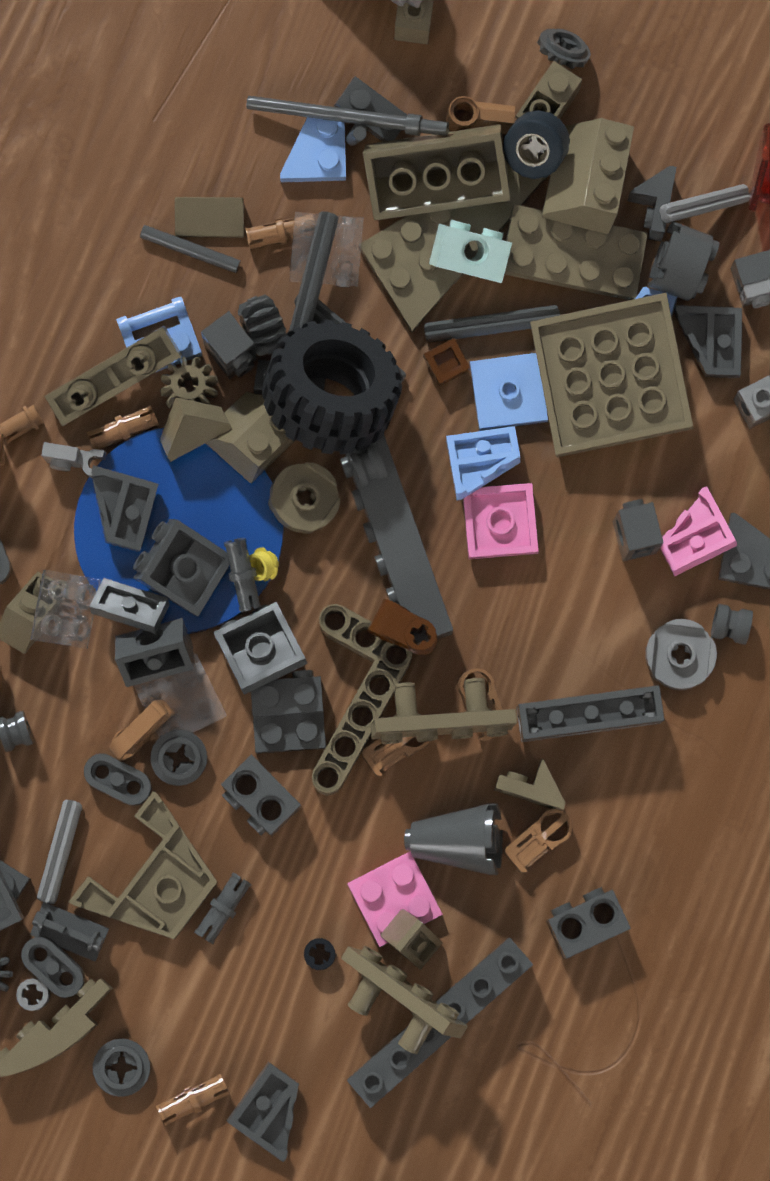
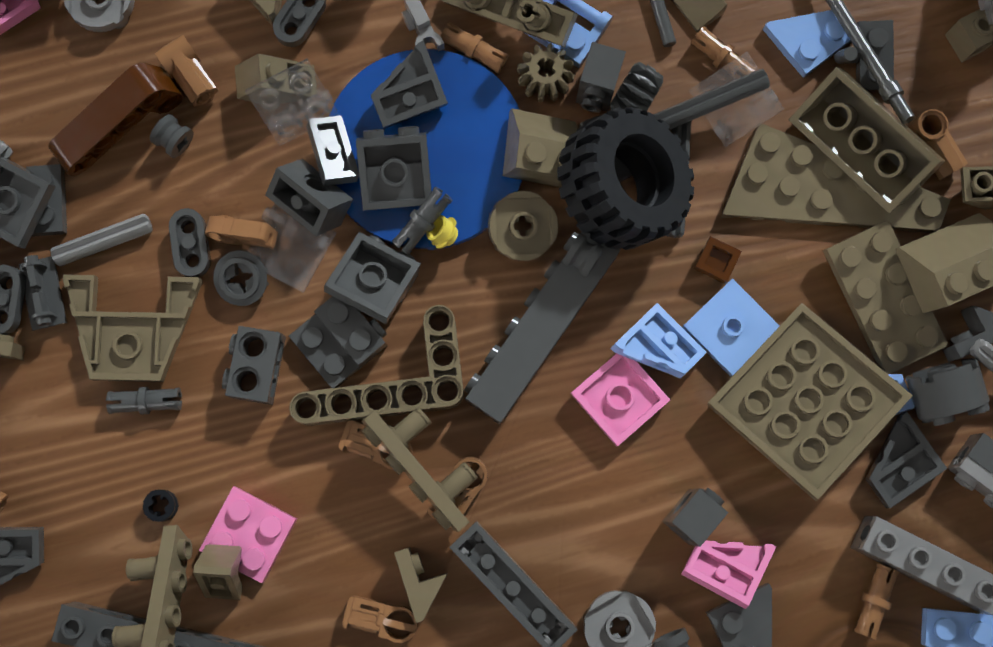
camera: 55 degrees right, 0 degrees up
(191, 426) = (513, 95): dark tan slope -> none
(397, 626) = (468, 376): reddish brown piece -> none
(460, 839) = (331, 554): dark grey cone -> none
(486, 324) = (773, 270): dark grey axle -> none
(490, 258) = (827, 233): light aqua brick -> none
(530, 156) = (940, 196): black wheel -> none

